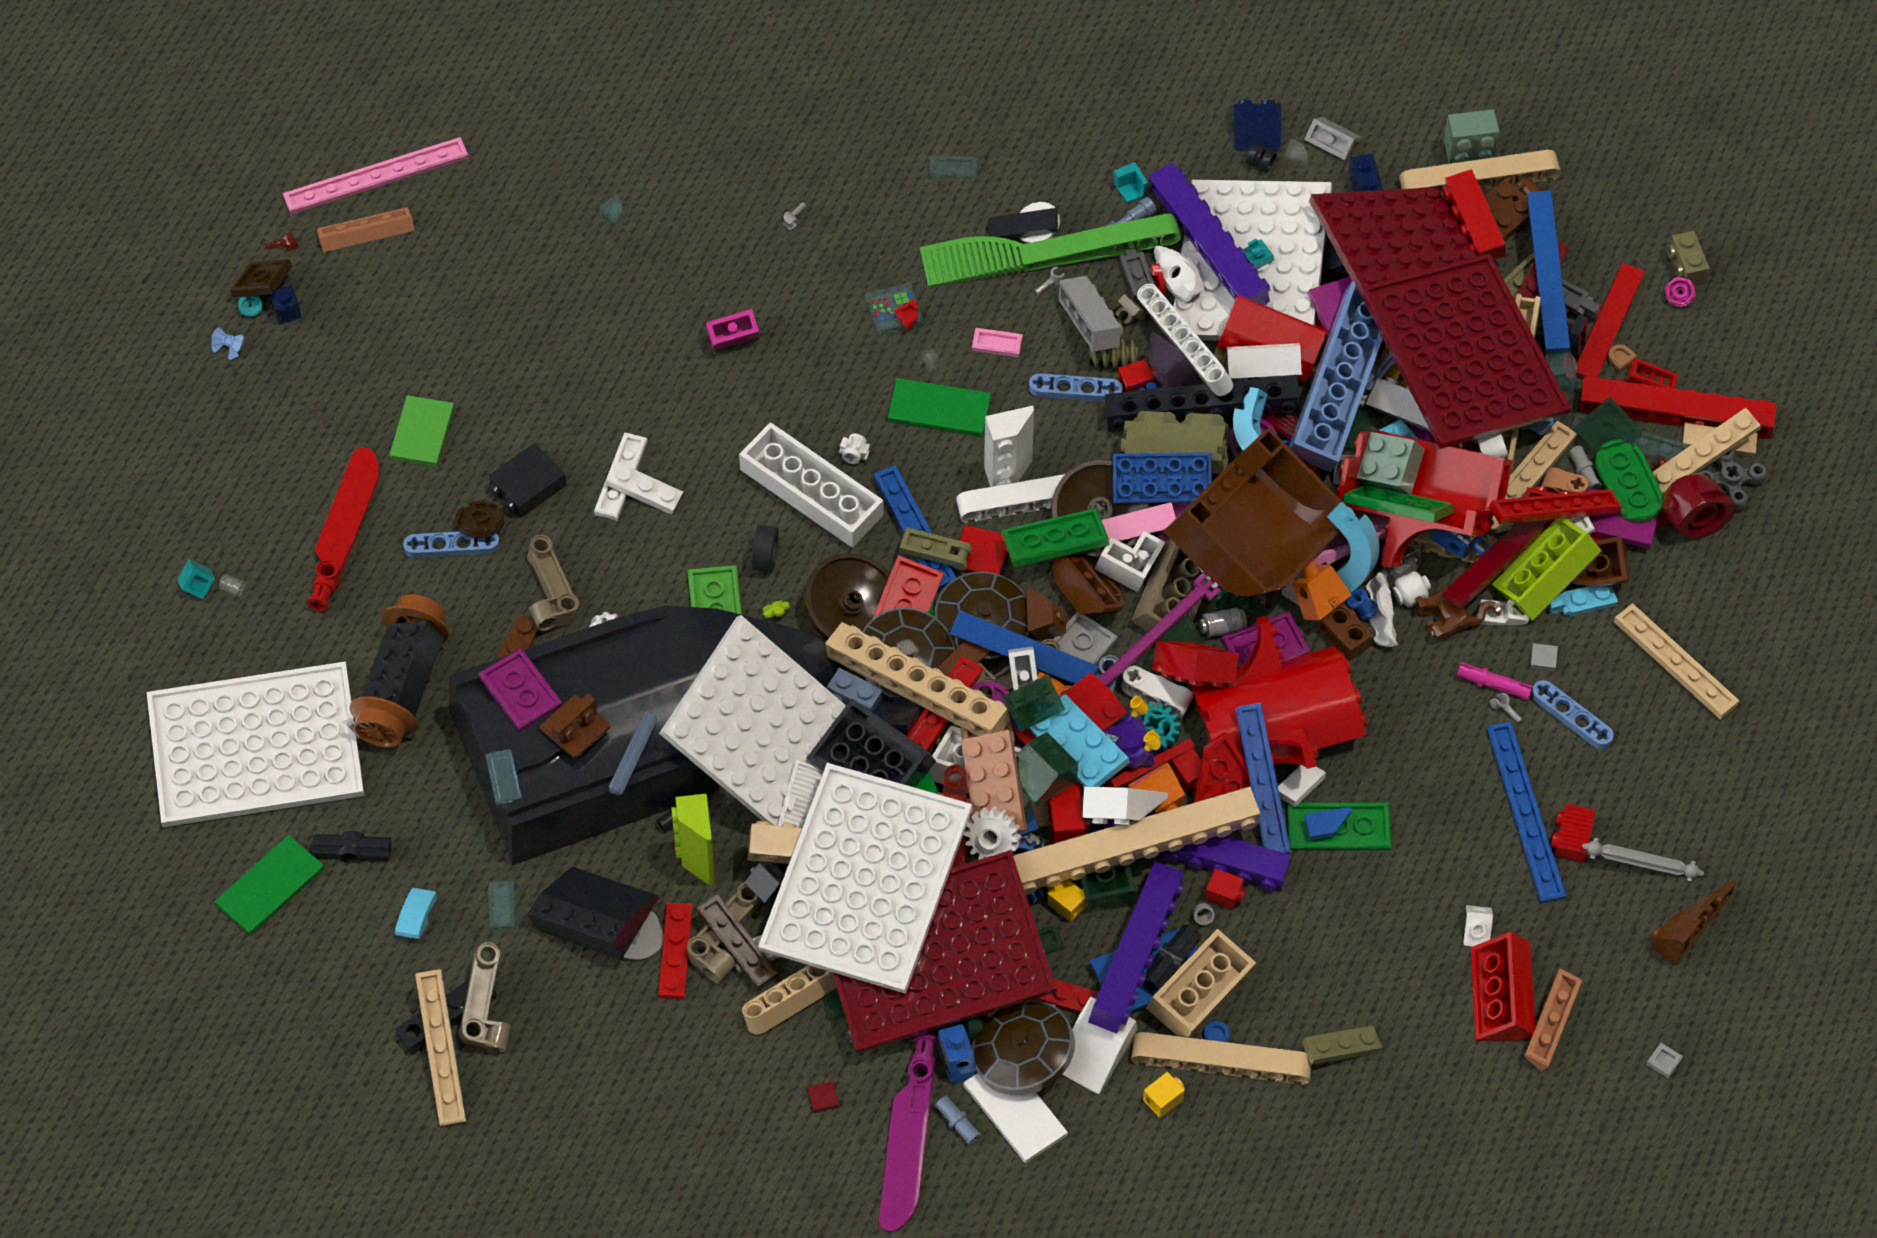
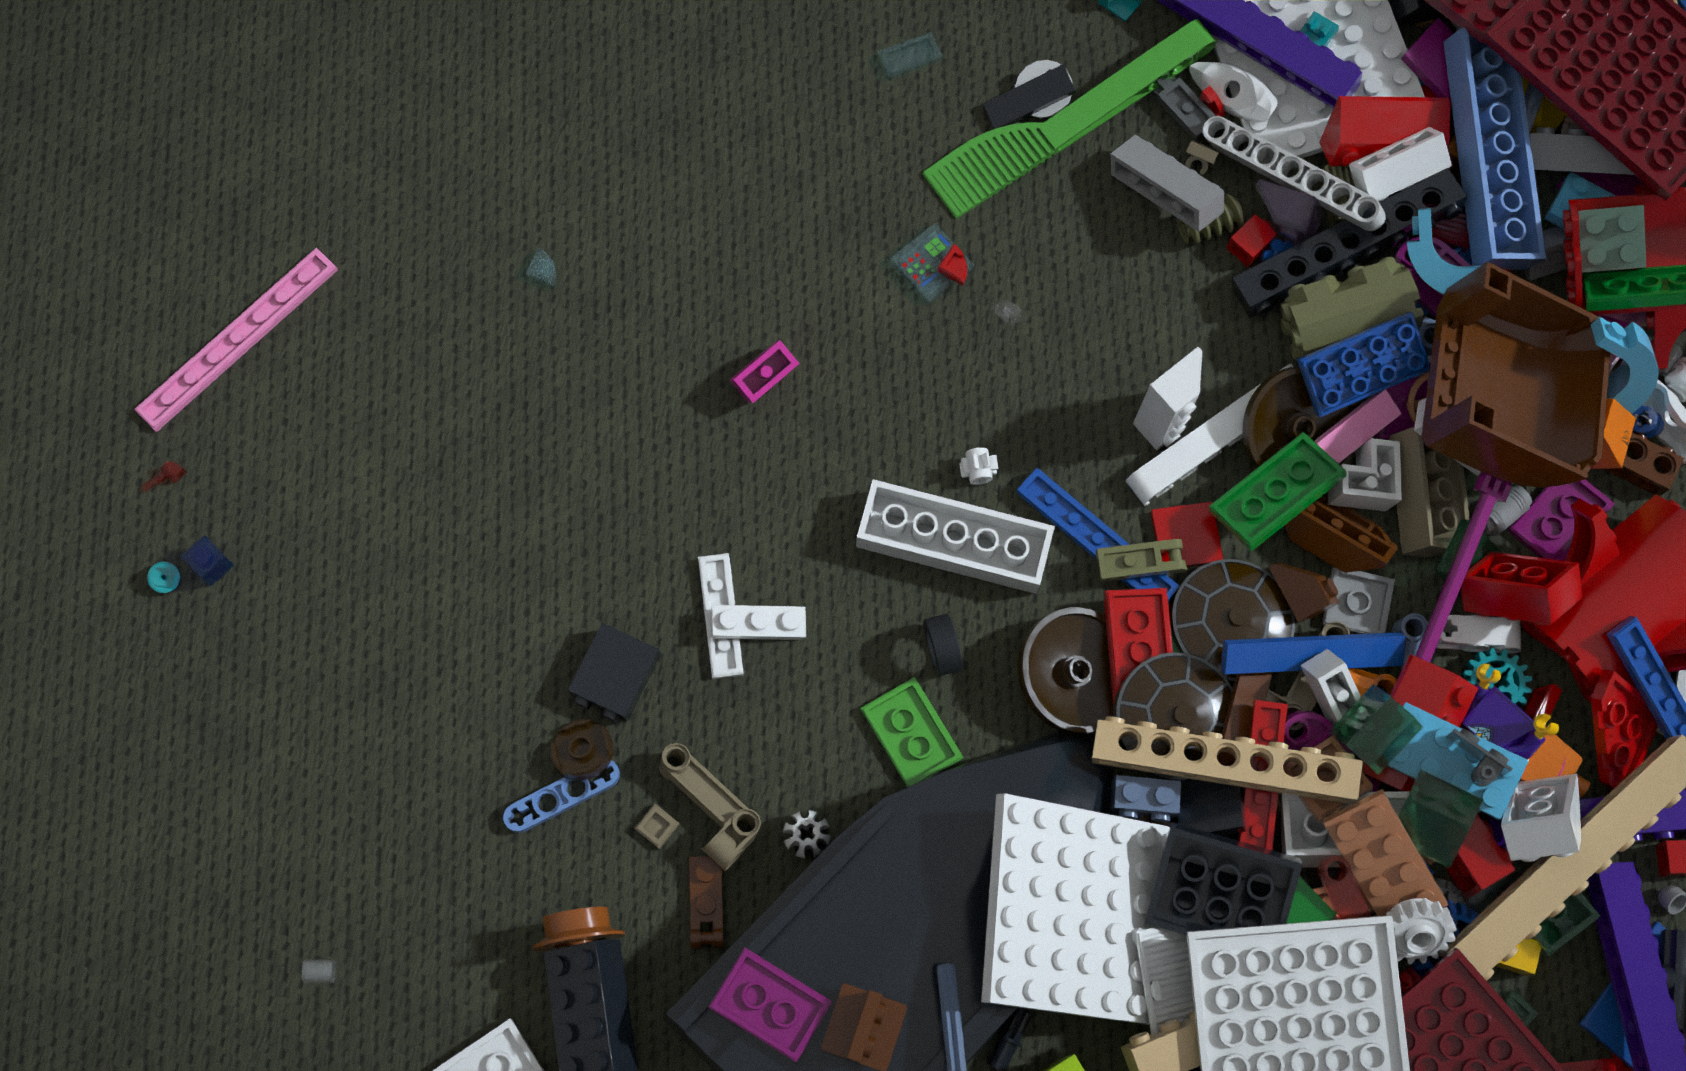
camera: 25 degrees left, 15 degrees up
(195, 579) = (269, 983): teal panel -> none
(222, 339) = (147, 638): medium blue piece -> none
(261, 278) = (161, 539): dark brown tile -> none
(343, 525) = (417, 824): red piece -> none
(381, 226) = (257, 416): nougat slope -> none
(421, 431) = (453, 657): bright green tile -> none
(507, 588) = (657, 826): none -> dark tan tile
(777, 609) = (989, 714): lime plant -> none
(790, 219) = (756, 197): light grey hand -> none
(939, 407) = (1045, 368): green tile -> none
(997, 342) = (1069, 257): bright pink tile -> none
(1053, 280) = (1092, 152): light grey hand -> none
(1075, 384) = (1185, 276): medium blue beam -> none
(1087, 735) = (1491, 762): none -> dark grey hinge
(1144, 209) = (1152, 21): sand blue piece -> none
(1187, 769) = (1572, 721): red brick -> none

